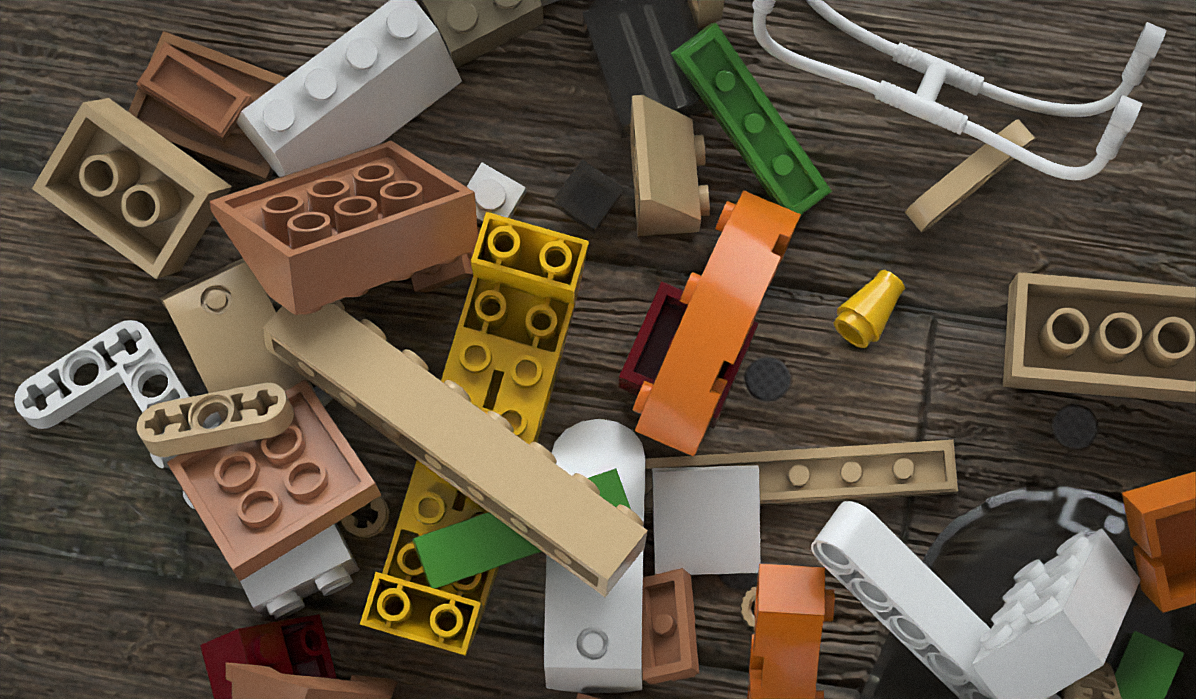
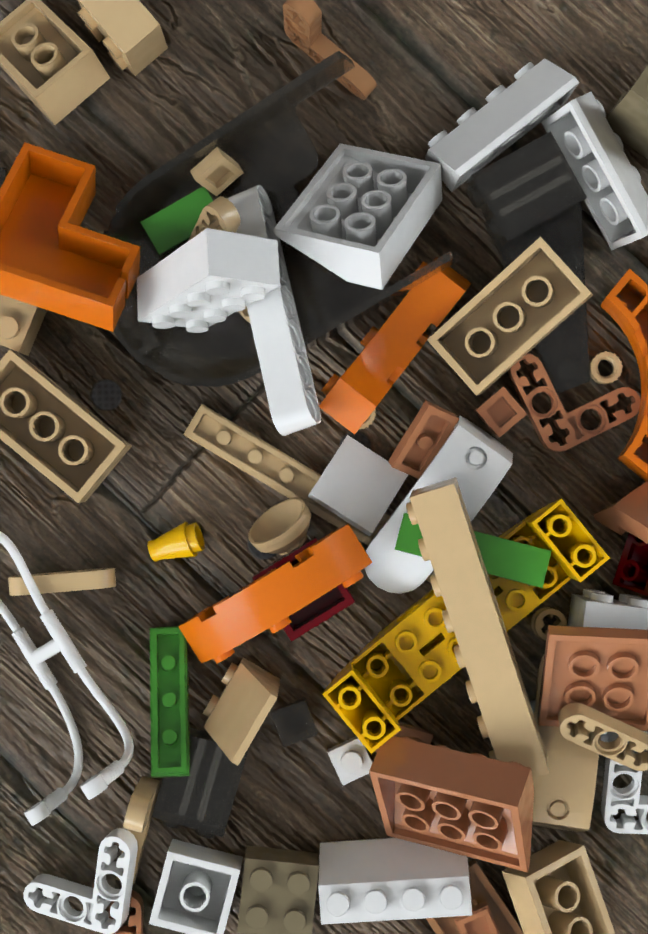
camera: 145 degrees left, 10 degrees up
(762, 407) = (281, 527): none -> tan piece

